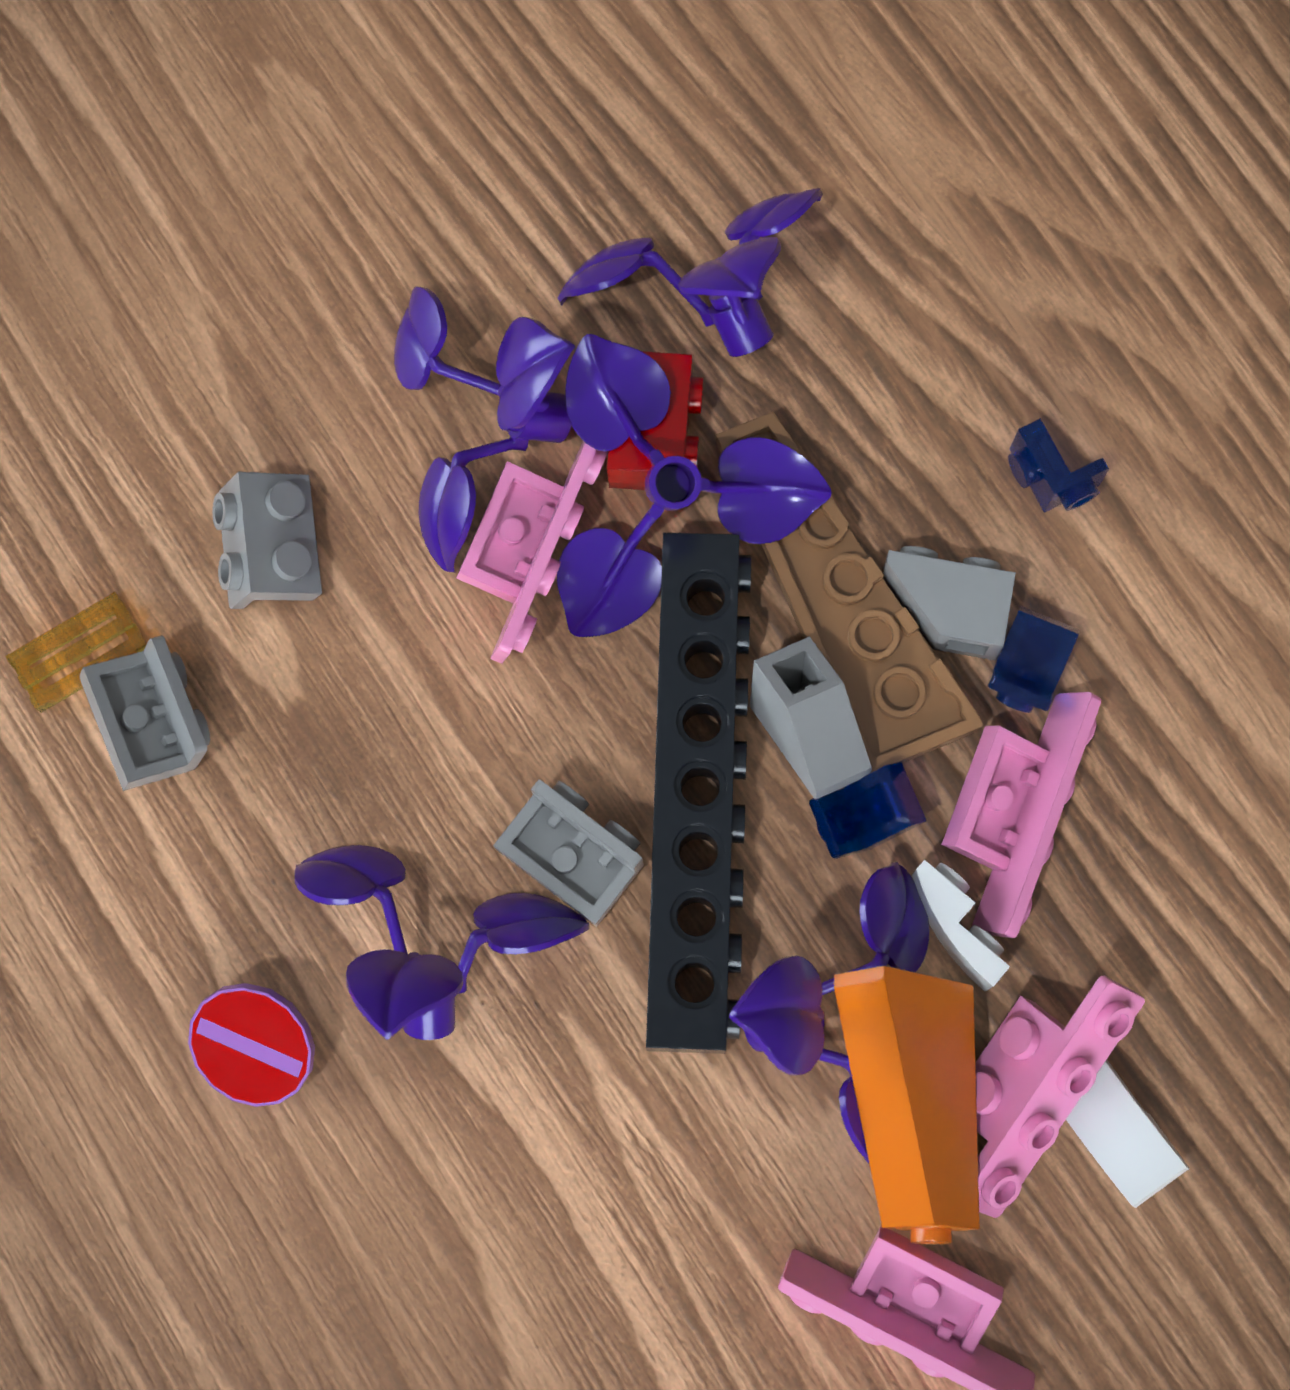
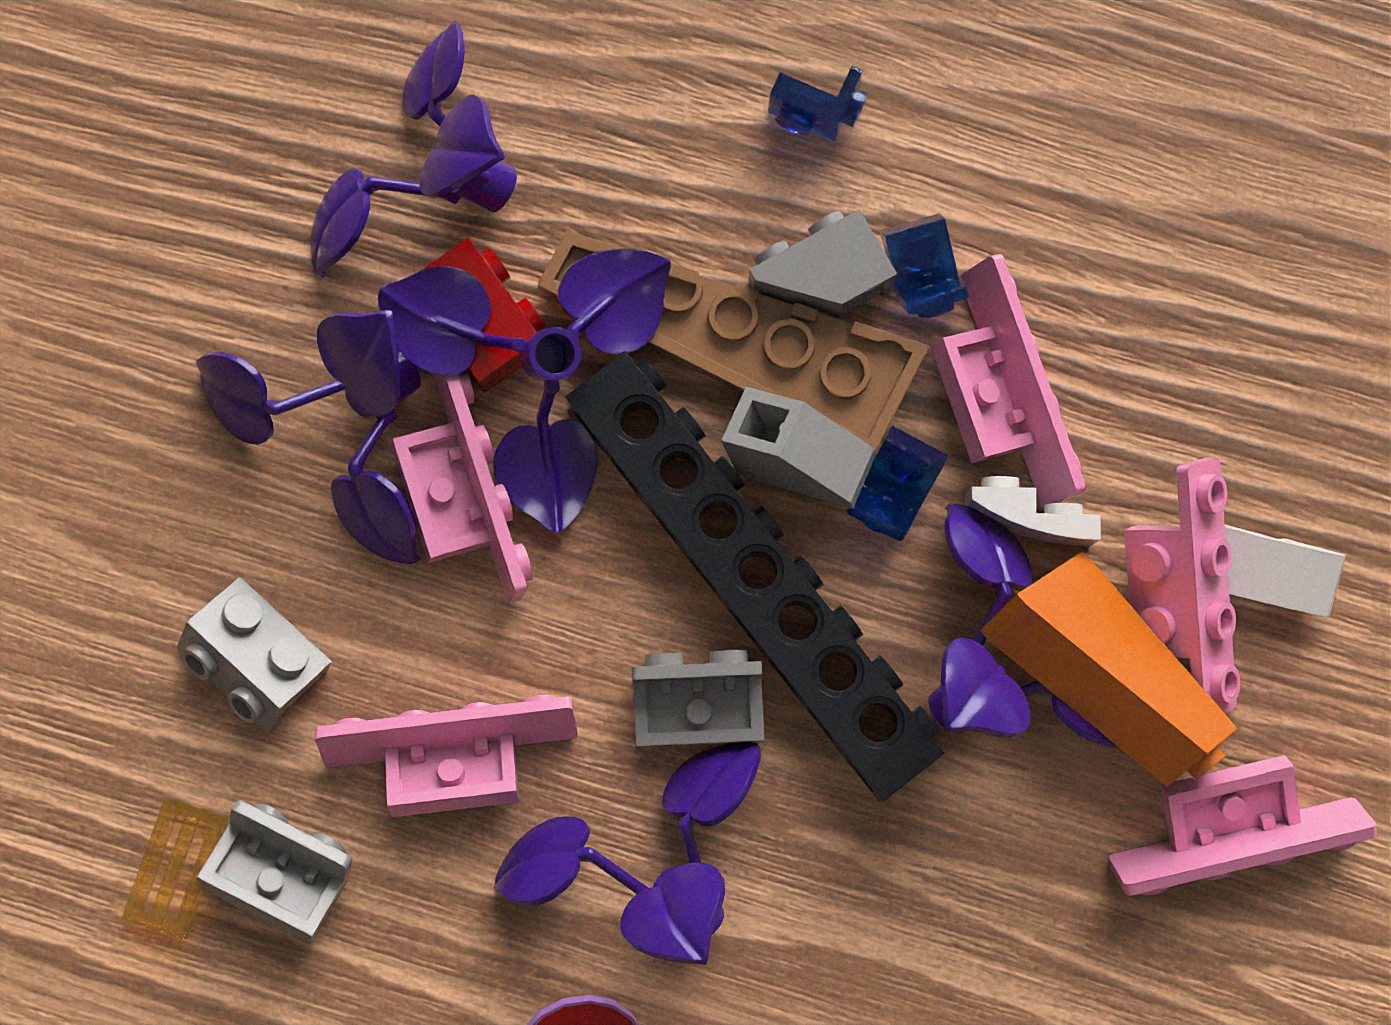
camera: 45 degrees left, 5 degrees up
(349, 736) = (451, 755): none -> bright pink bracket

